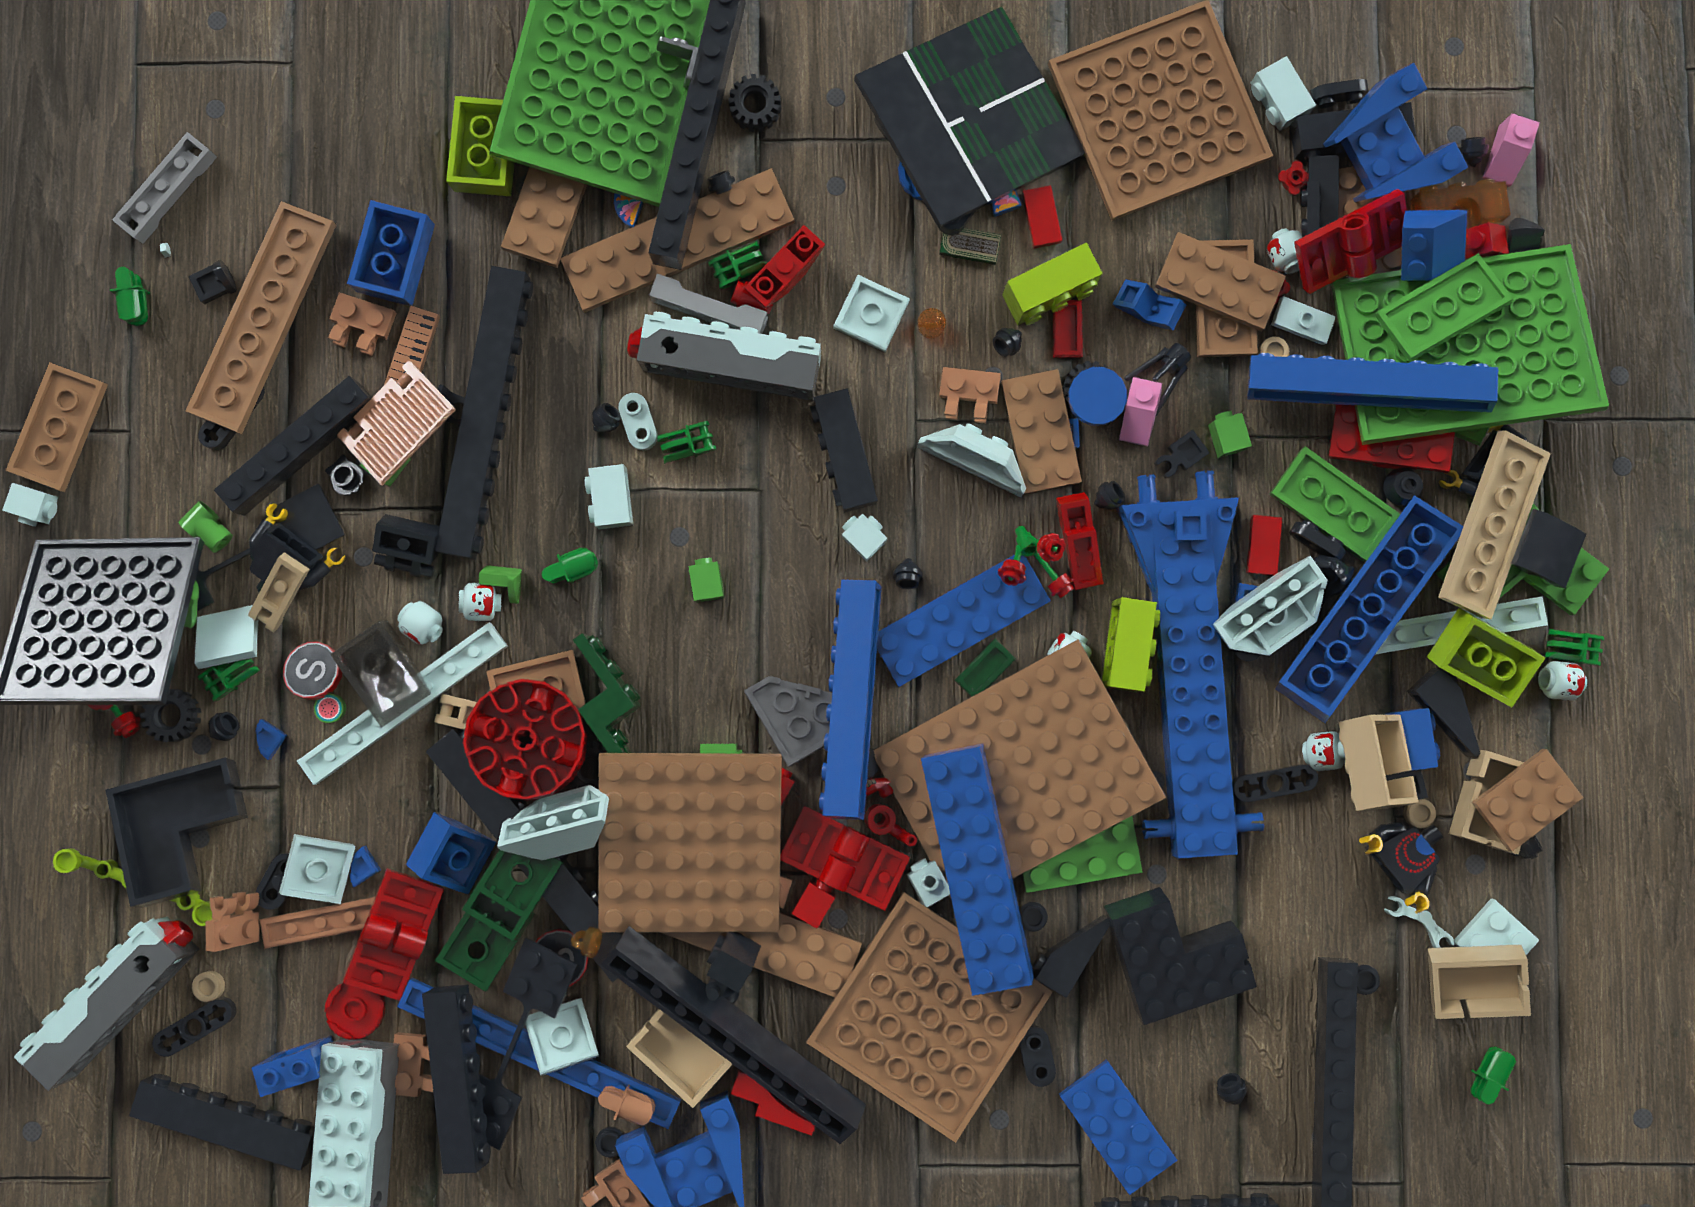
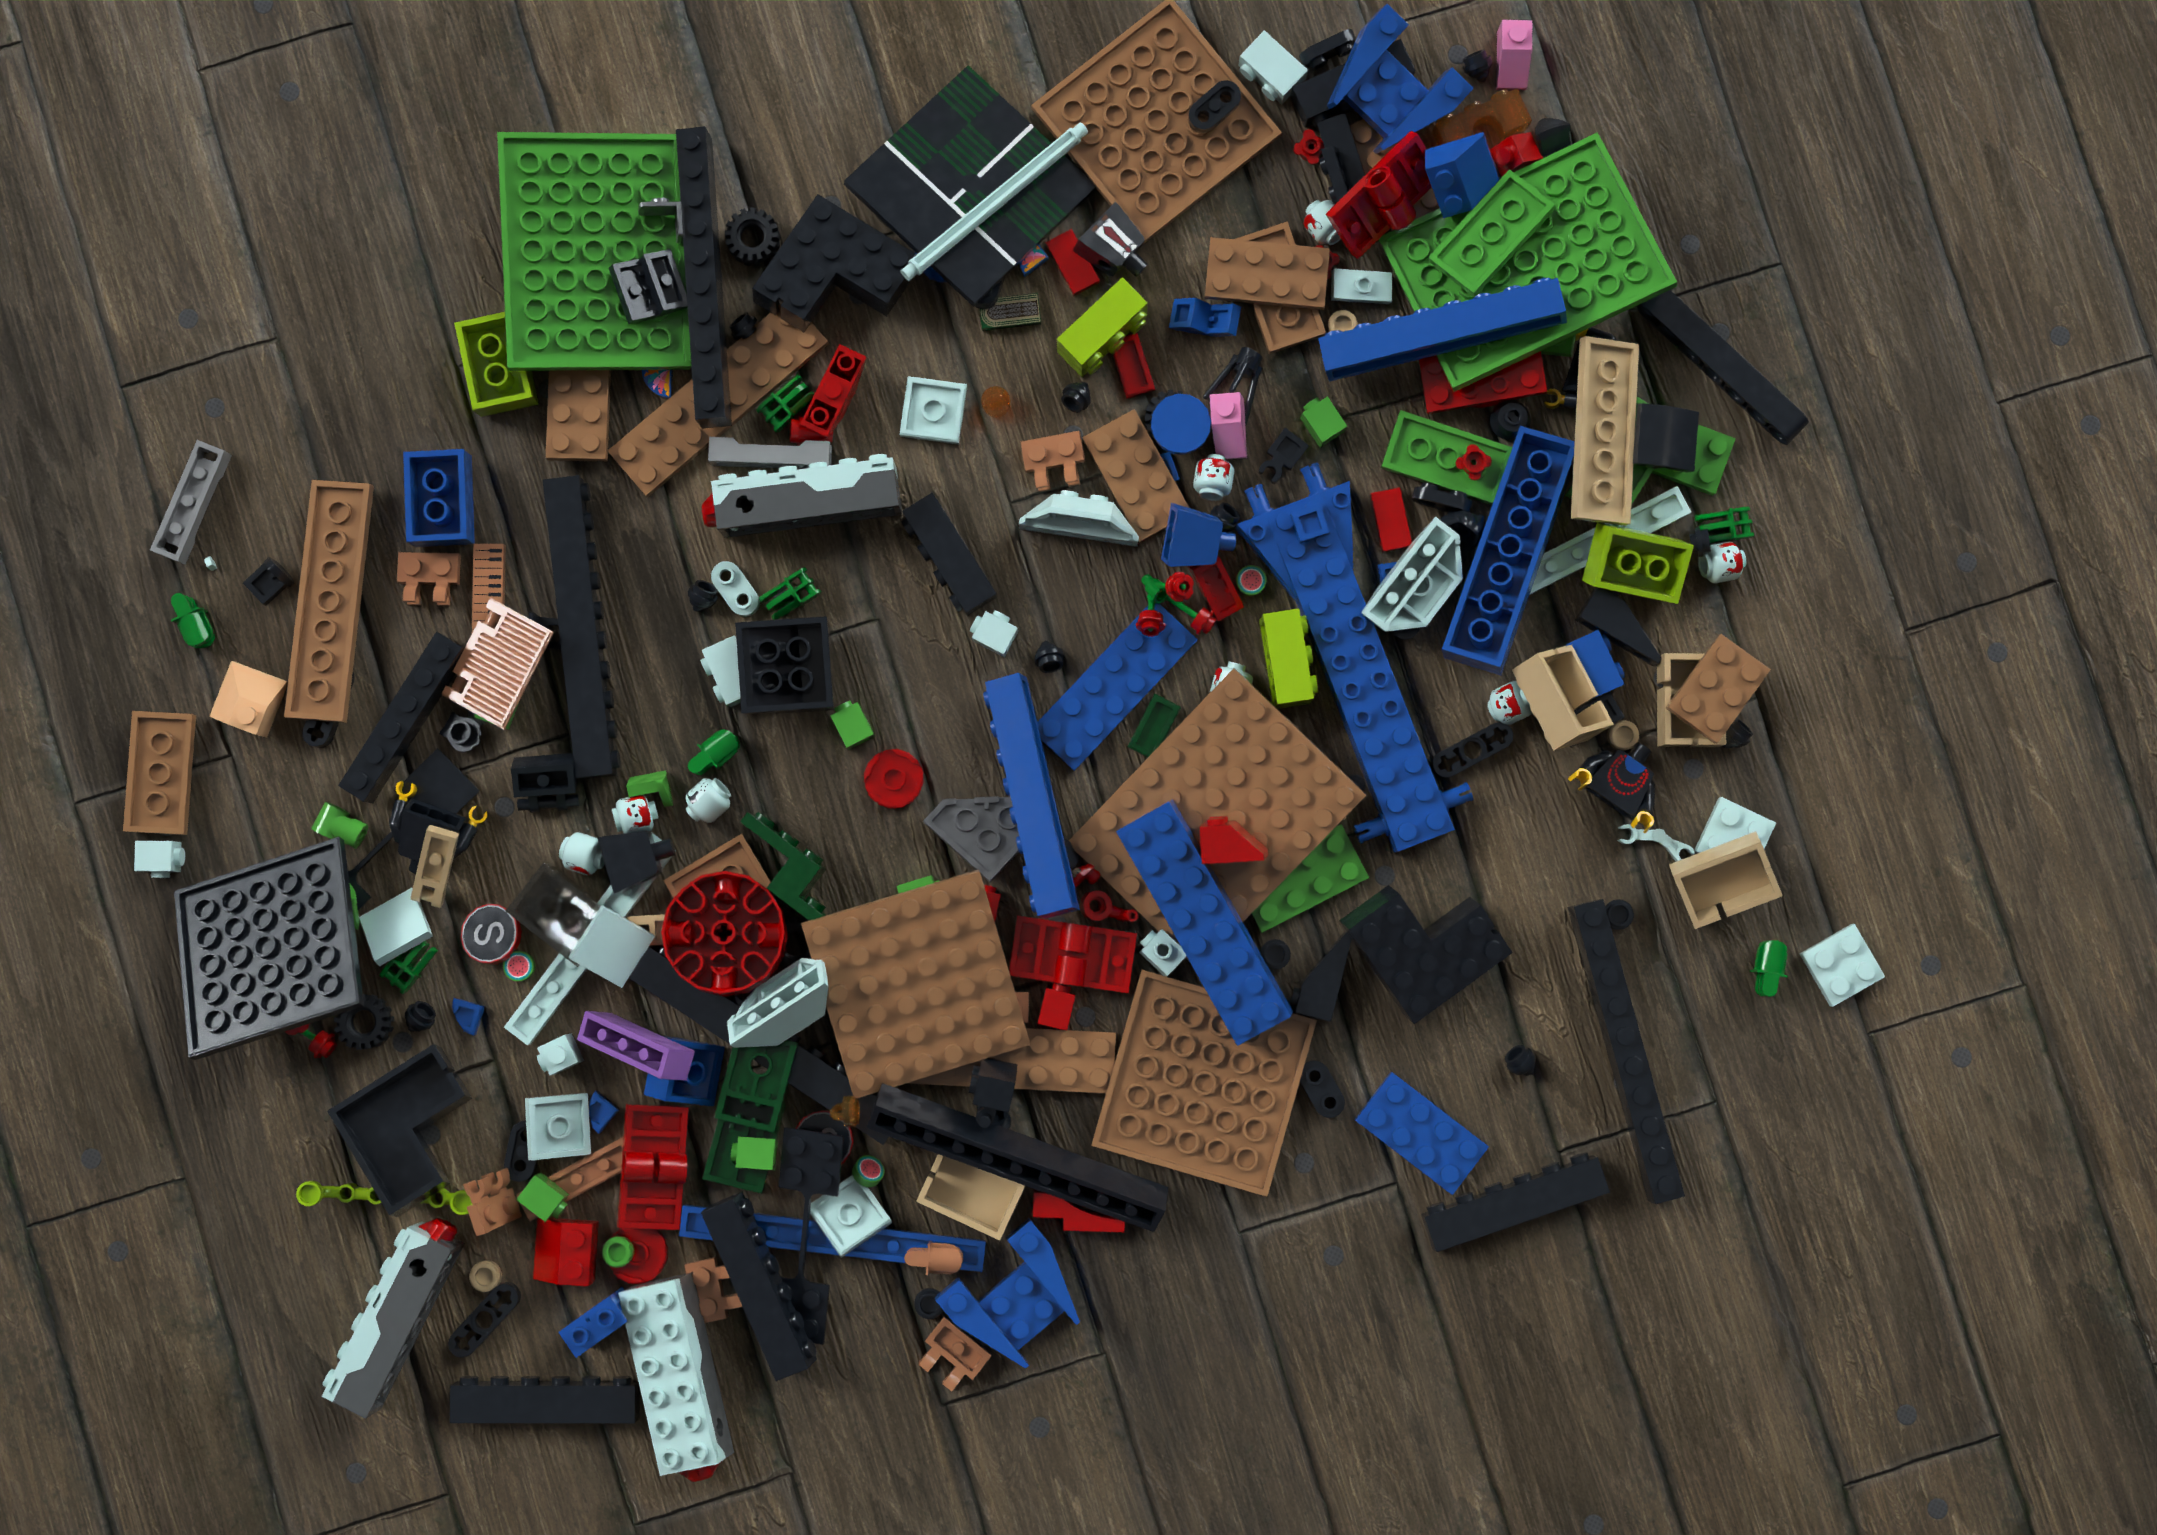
camera: 15 degrees left, 0 degrees up
(160, 385) = (249, 699): none -> light nougat slope
(282, 932) = (544, 1197): none -> bright green brick
(289, 988) = (566, 1251): none -> red slope
(336, 1003) = (618, 1251): none -> bright green tile
(340, 802) = (559, 1054): none -> light aqua brick
(411, 819) = (636, 1045): none -> medium lavender brick
(418, 718) = (611, 946): none -> light aqua tile
(464, 642) = (633, 858): none -> black torso
(490, 953) = (755, 1153): none -> bright green brick
(551, 609) = (707, 800): none -> light aqua head
(591, 1001) = (868, 1171): none -> tile
(644, 117) = (649, 286): none -> black slope
(660, 506) = (784, 666): none -> black slope
(729, 642) = (893, 778): none -> red tile
(824, 138) = (827, 252): none -> black piece
(987, 137) = (994, 201): none -> light aqua piece
(1024, 803) = (1228, 842): none -> red slope
(1078, 506) = (1194, 538): none -> blue torso
(1085, 210) = (1112, 243): none -> black torso
(1112, 455) = (1213, 477): none -> light aqua head
(1116, 561) = (1251, 580): none -> tile
(1217, 112) = (1213, 107): none -> black plate
(1362, 507) = (1482, 461): none -> red plate
(1552, 655) = (1700, 541): none -> black plate
(1560, 1093) = (1842, 965): none -> light aqua plate
(1619, 499) = (1724, 366): none -> black beam

